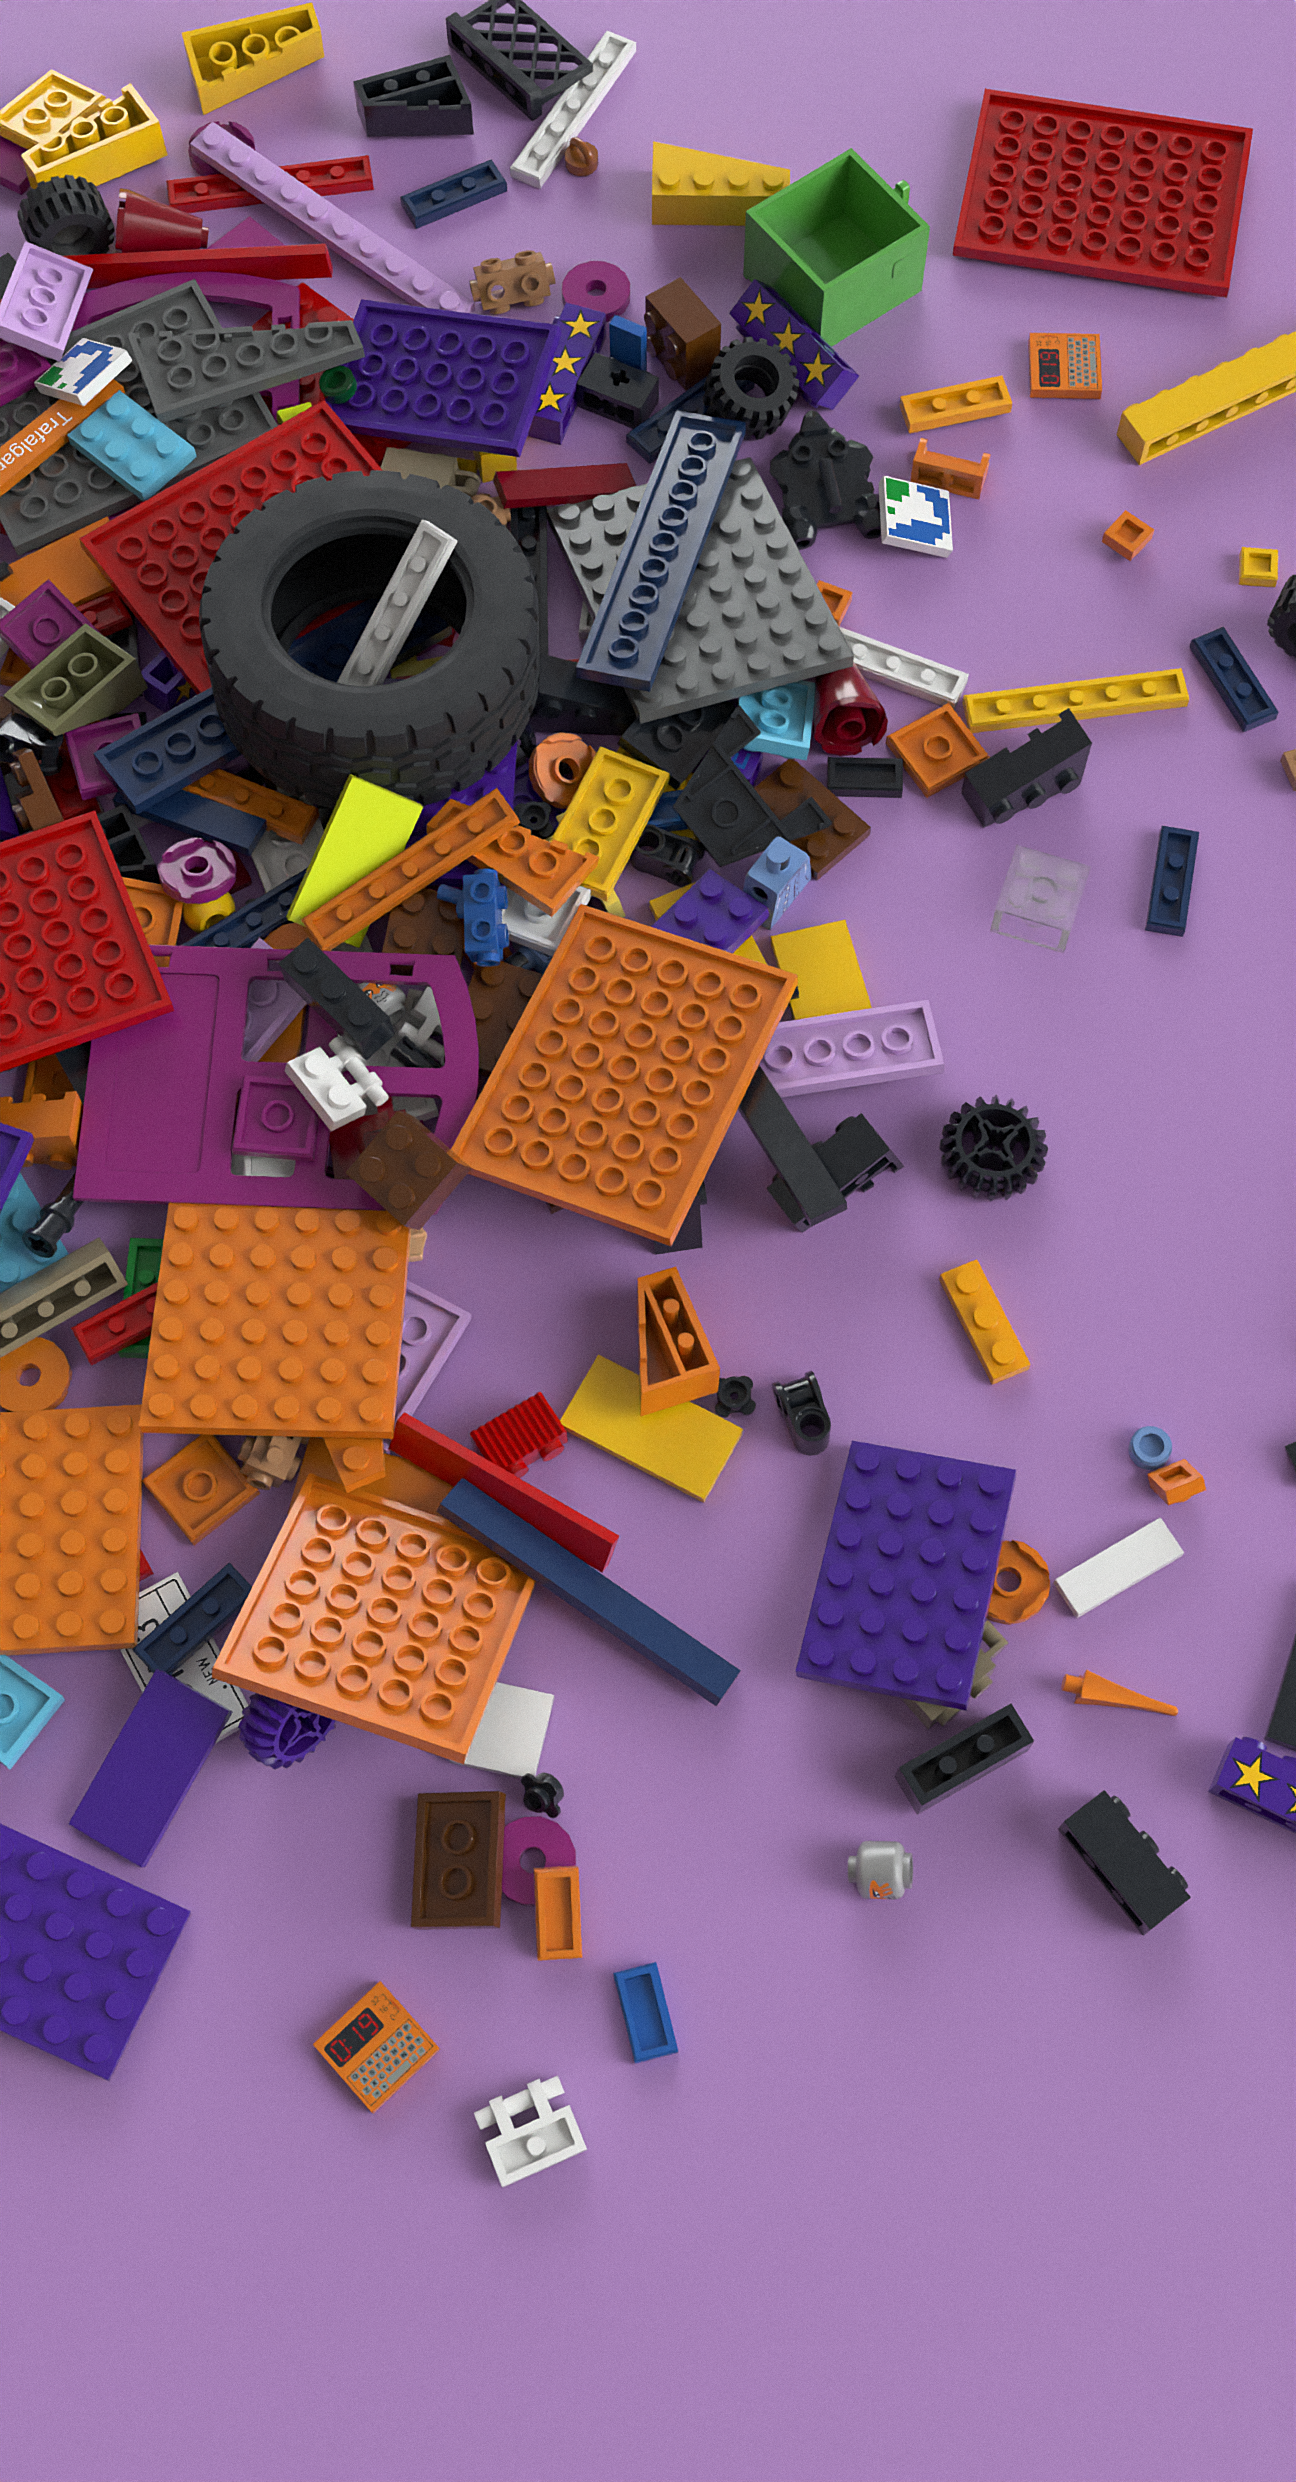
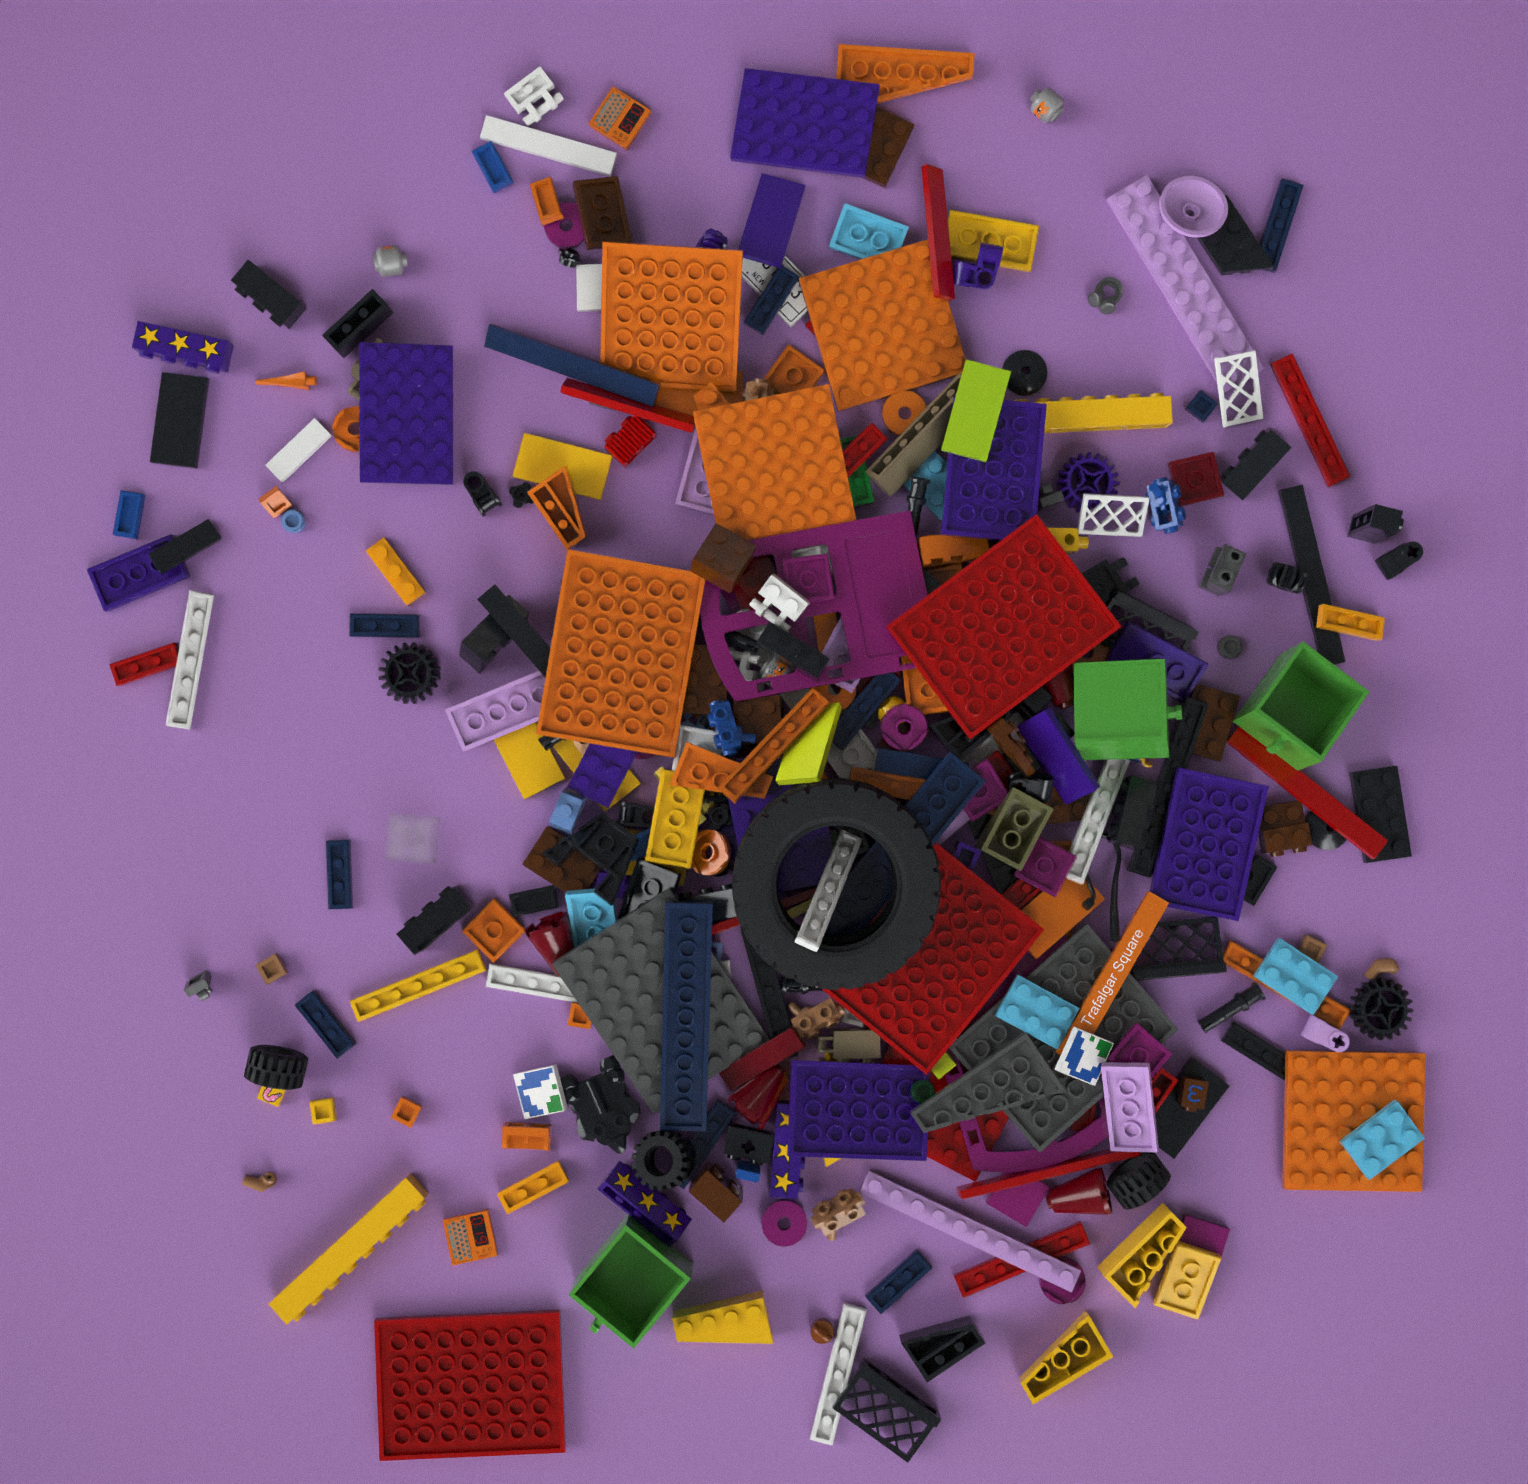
camera: 170 degrees right, 20 degrees up
(528, 2026) = (548, 146): none -> white tile
(585, 436) = (760, 1095): none -> dark red cone
(1022, 1239) = (385, 625): none -> dark blue tile

